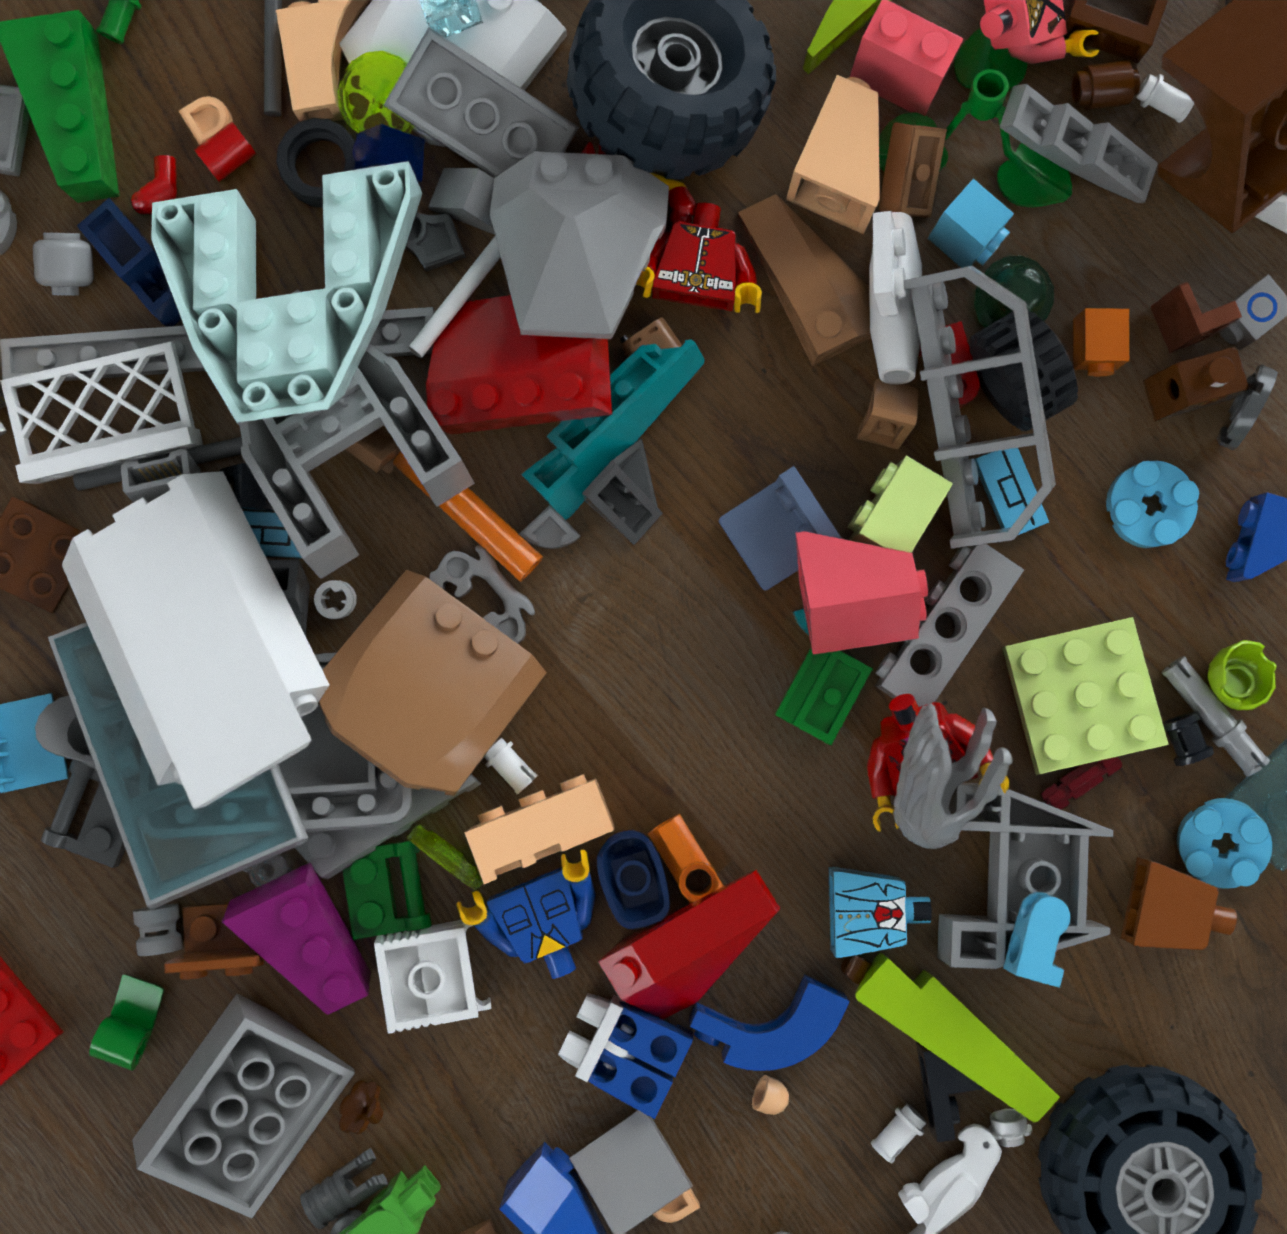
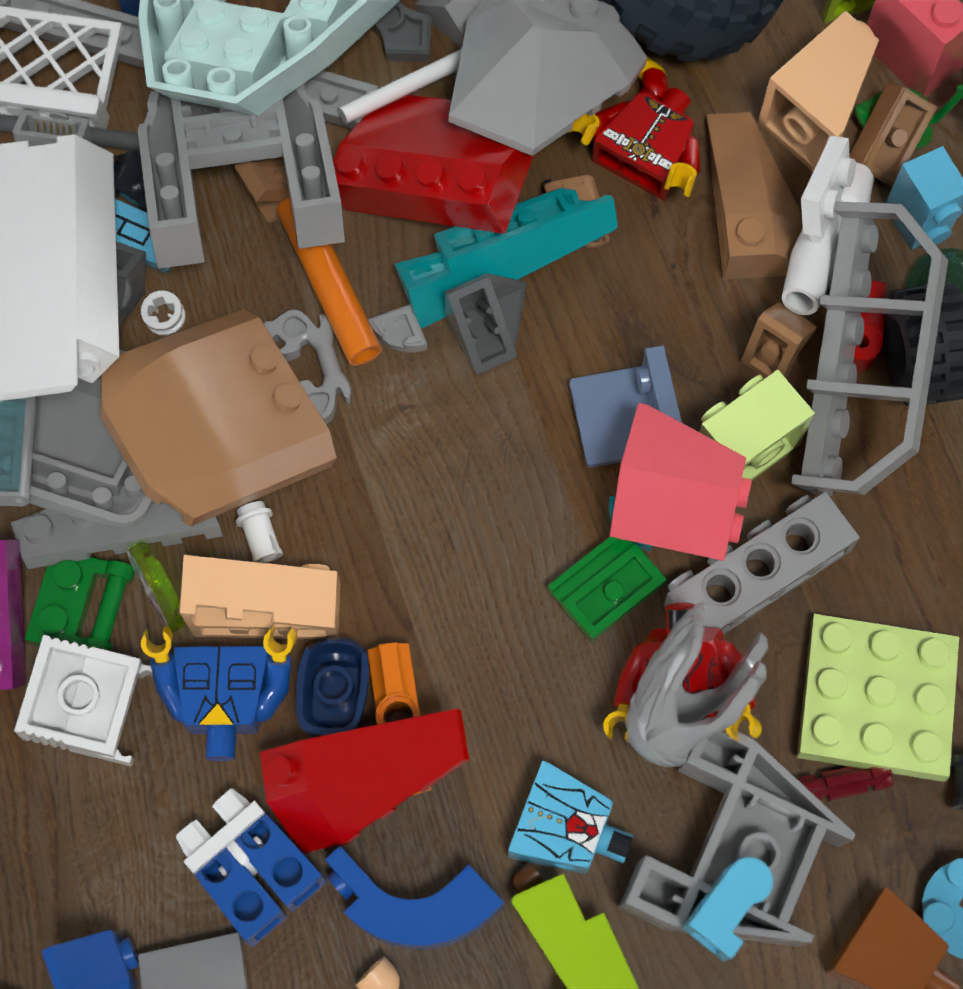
camera: 20 degrees right, 15 degrees down
(1009, 487) = (869, 445): medium azure tile -> none

